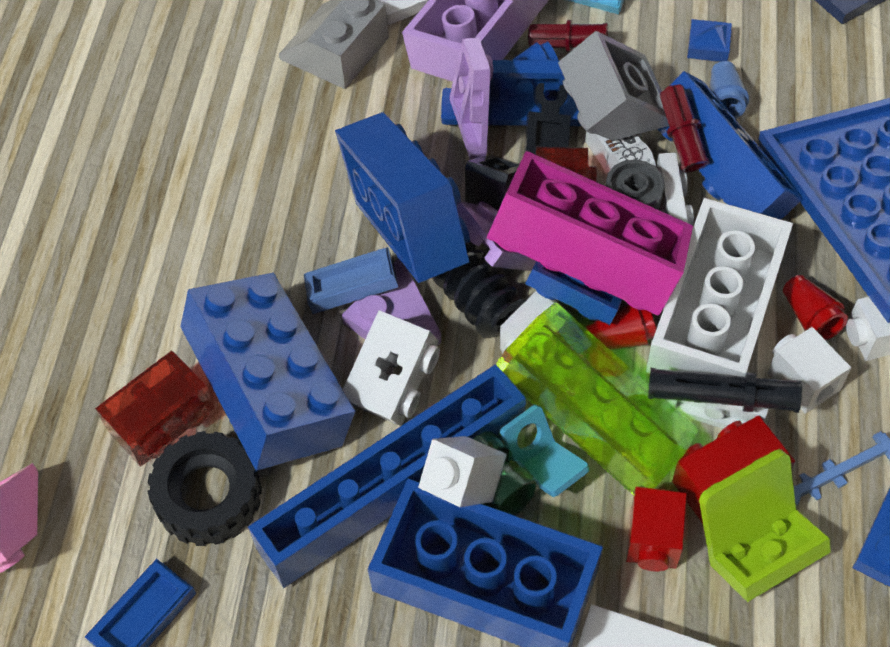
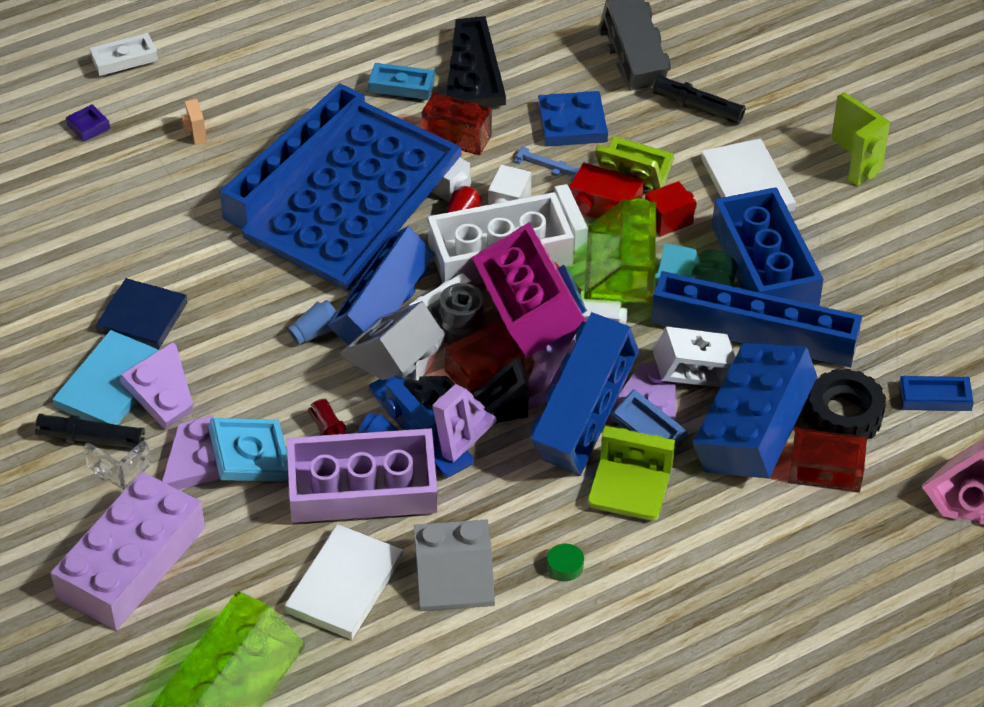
camera: 130 degrees left, 10 degrees down
(267, 124) = (565, 562): none -> green tile
(303, 223) = (632, 473): none -> lime bracket
(462, 471) = (736, 262): white brick -> none
(683, 128) = (394, 298): dark red axle -> none
(709, 40) = (267, 358): blue tile -> none
(726, 390) = (567, 188): black pin -> none

